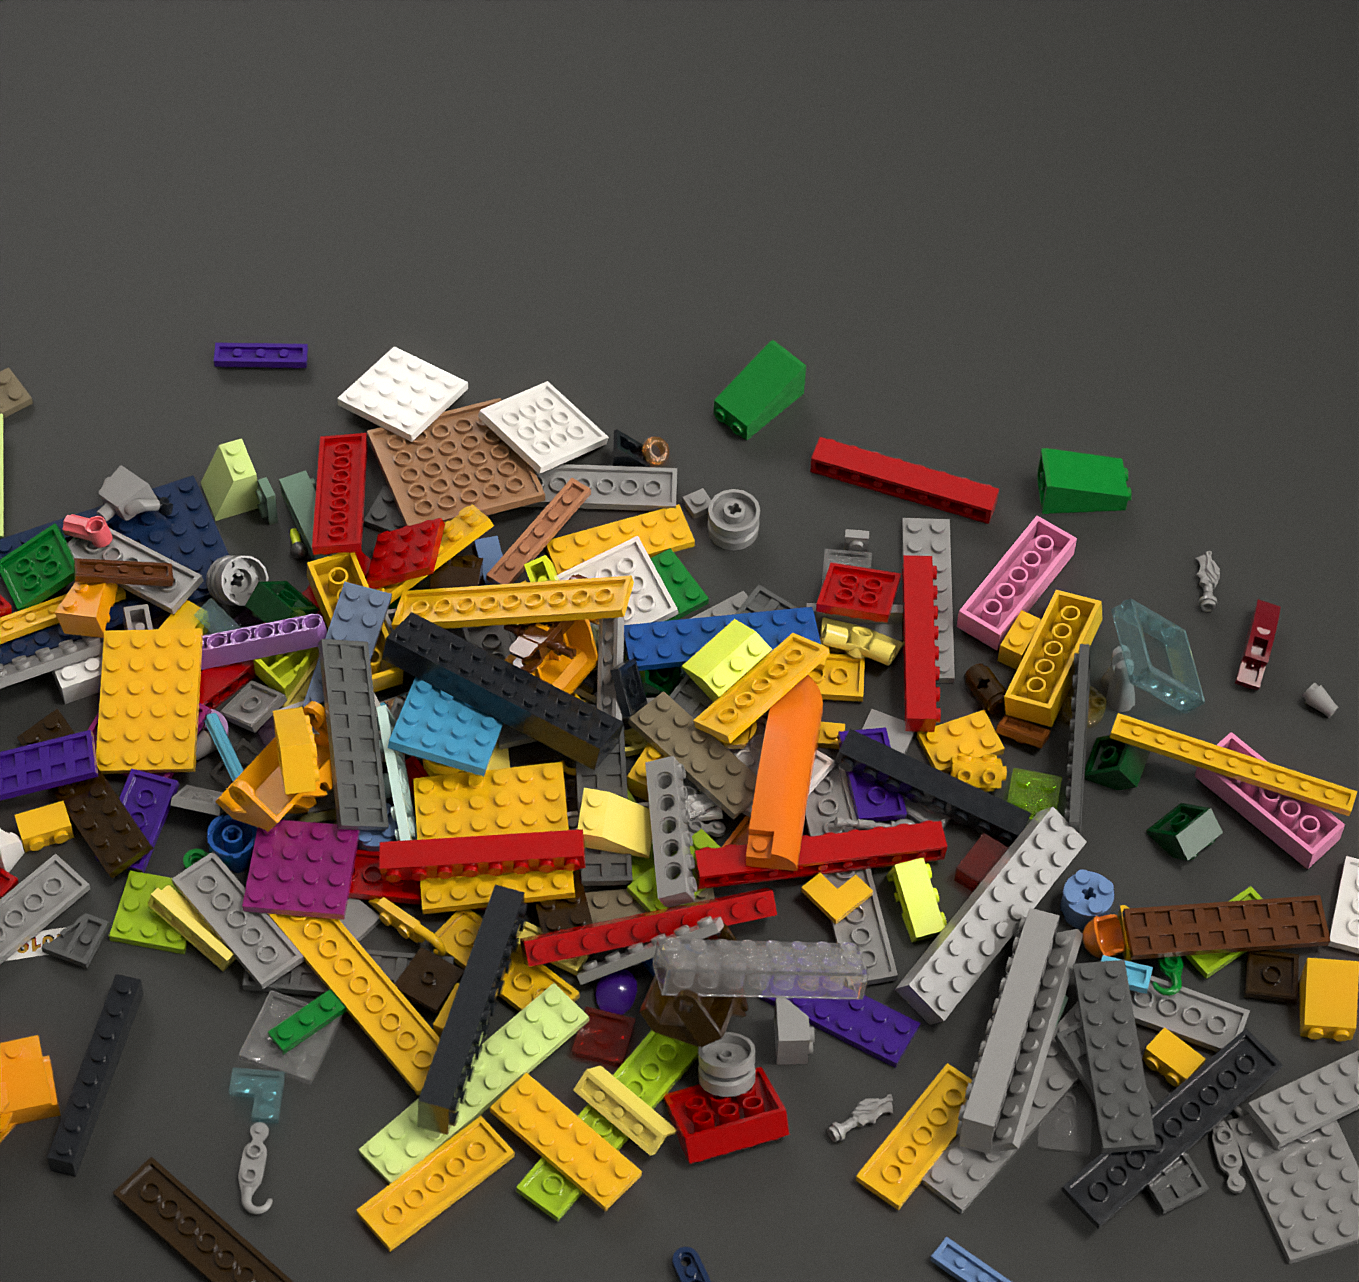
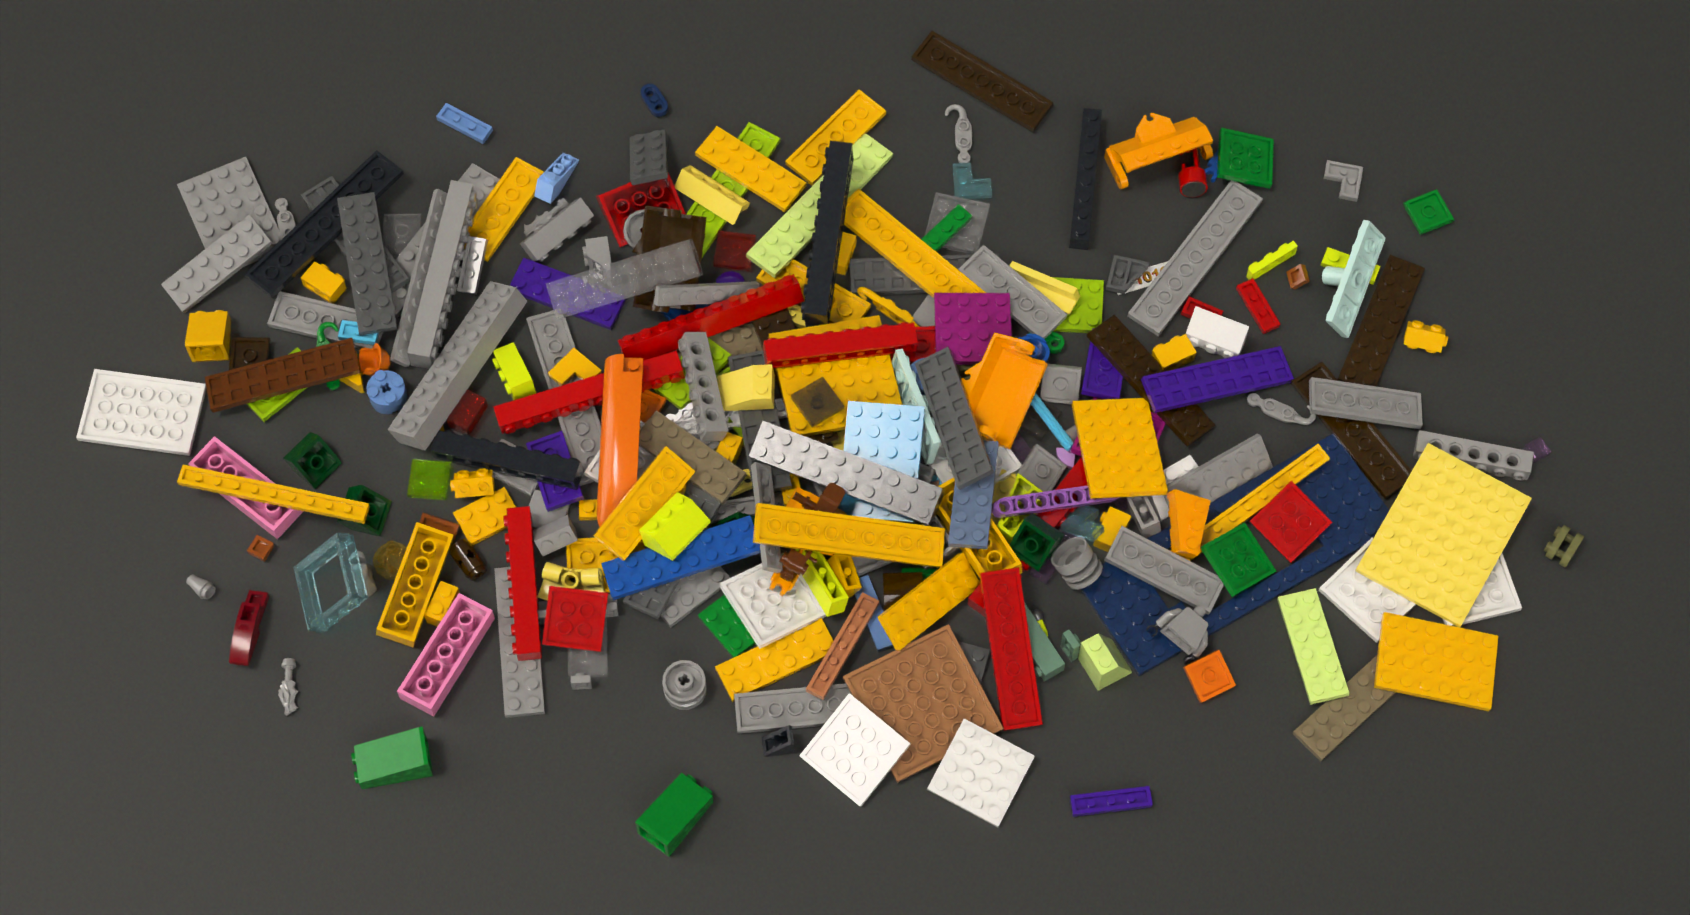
camera: 175 degrees right, 10 degrees up
(92, 529) = (1209, 591): coral piece -> none
(107, 457) = (1209, 676): none -> orange plate
(123, 572) = (1166, 541): reddish brown tile -> none
(296, 750) = (994, 388): yellow brick -> none
(405, 553) = (945, 594): red plate -> none
(429, 980) = (865, 269): dark brown plate -> none
(524, 788) = (817, 401): none -> clear smoke plate
(628, 687) = (748, 494): black tile -> none
(647, 450) = (753, 746): clear orange piece -> none
(697, 503) = (716, 706): light grey plate -> none
(709, 1166) = (648, 157): none -> dark grey plate
(842, 1173) = (555, 177): none -> light blue slope
(847, 1089) = (557, 229): none -> light grey brick
(868, 824) = (536, 434): light grey piece -> none
(876, 694) = (555, 535): none -> light grey brick
(904, 480) = (544, 746): red brick -> none
(966, 1052) = (472, 265): none -> light grey plate
(1078, 741) = (394, 506): dark grey plate -> none
(1249, 733) = (260, 548): none -> dark orange plate

